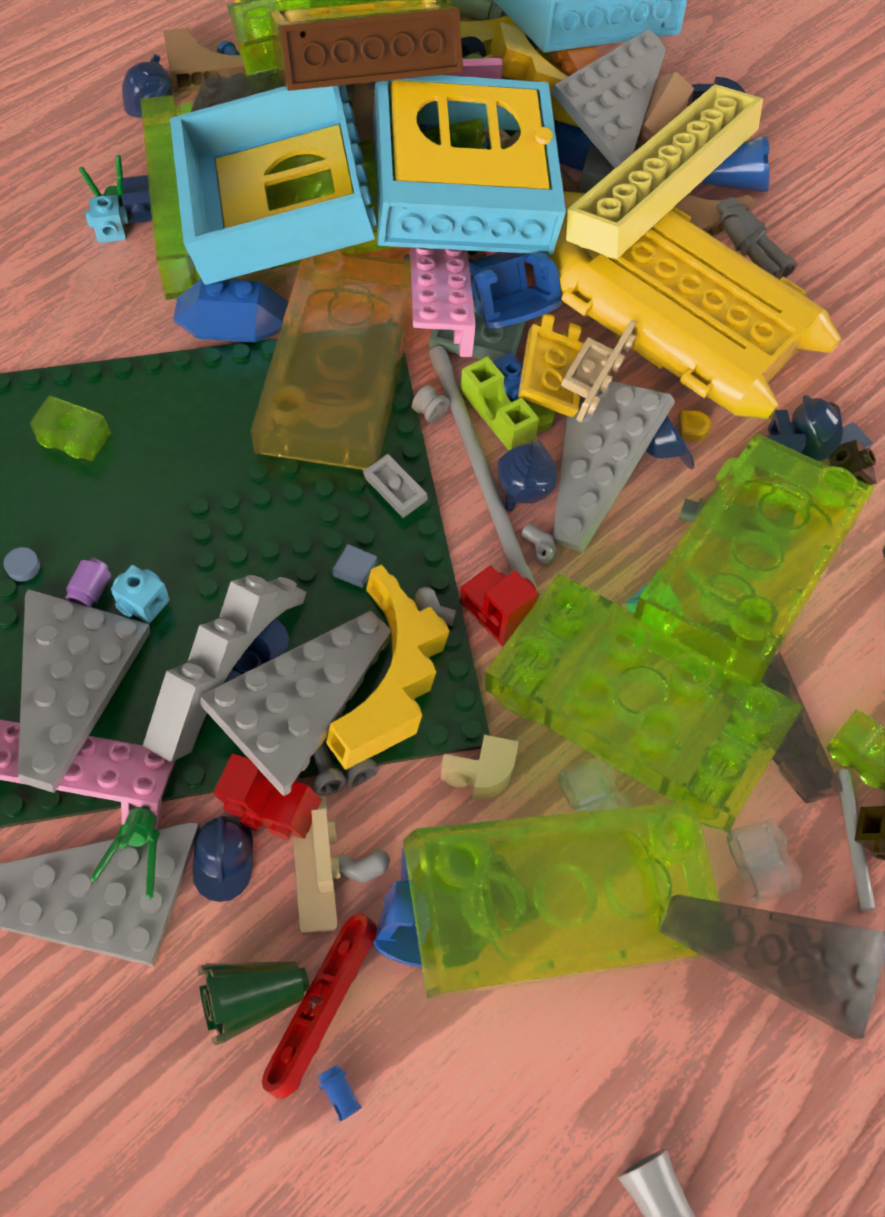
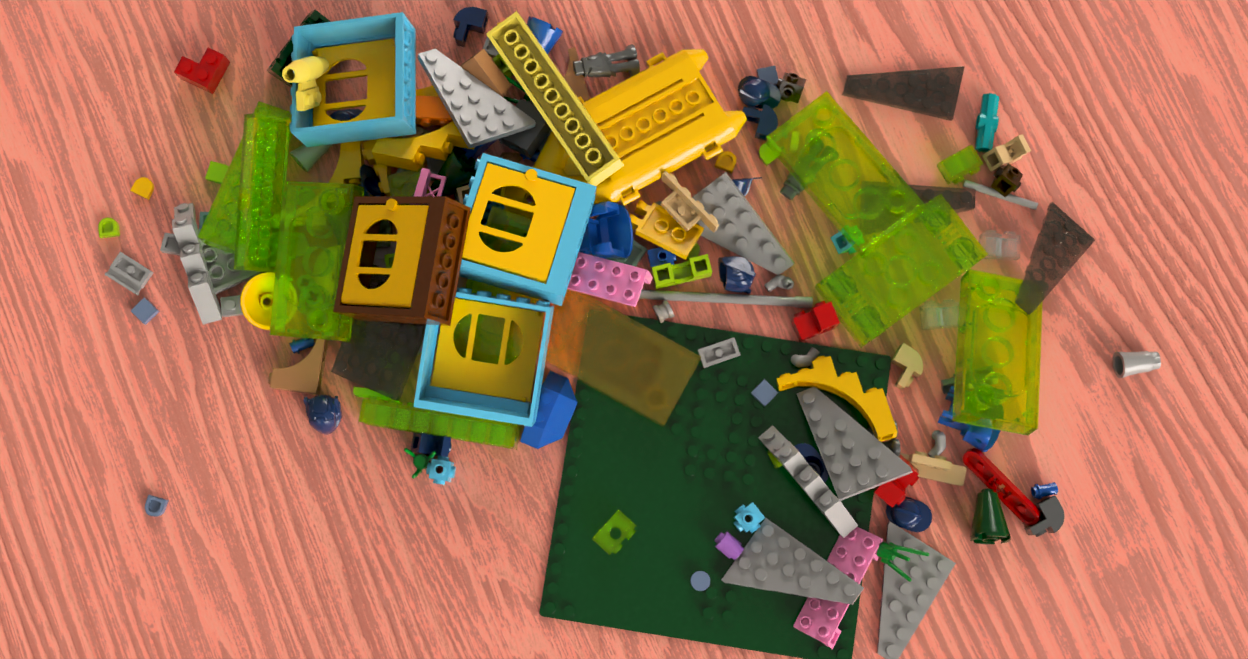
camera: 65 degrees left, 20 degrees up
(291, 1122) = (1051, 517): none -> dark grey brick

